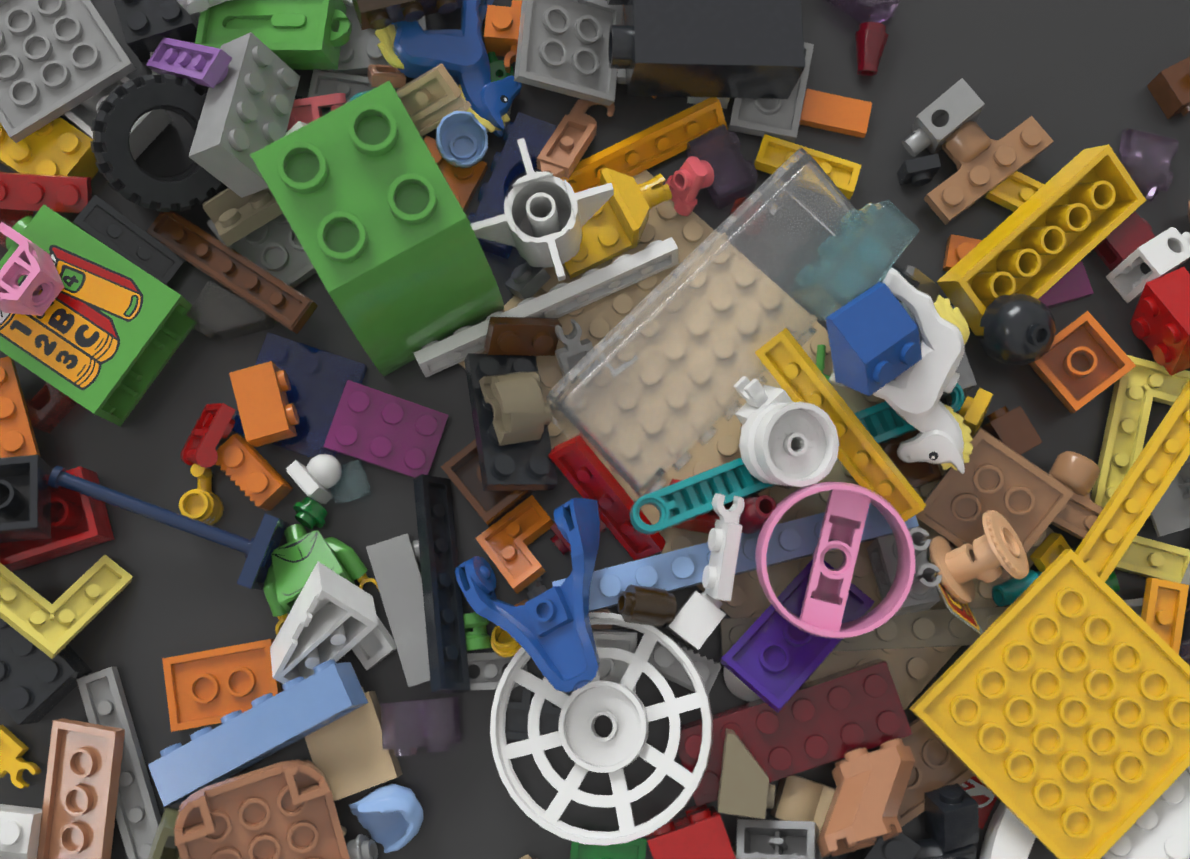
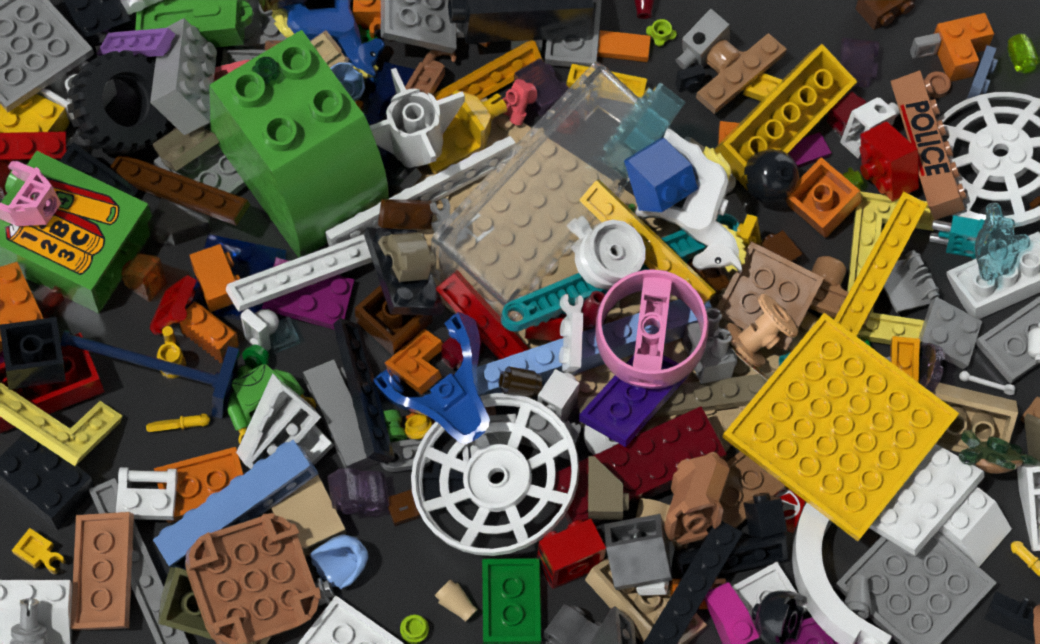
camera: 10 degrees left, 15 degrees down
(147, 709) = (147, 503): none -> white plate
(176, 386) = (144, 276): none -> clear orange slope
(203, 592) = (183, 422): none -> yellow piece
(331, 130) = (267, 63): none -> clear green plate
(370, 411) = (299, 273): none -> white plate
(476, 742) = (403, 508): none -> reddish brown tile
(893, 91) = (661, 26): none -> lime plate
(1121, 334) = (854, 177): none -> clear neon green plate

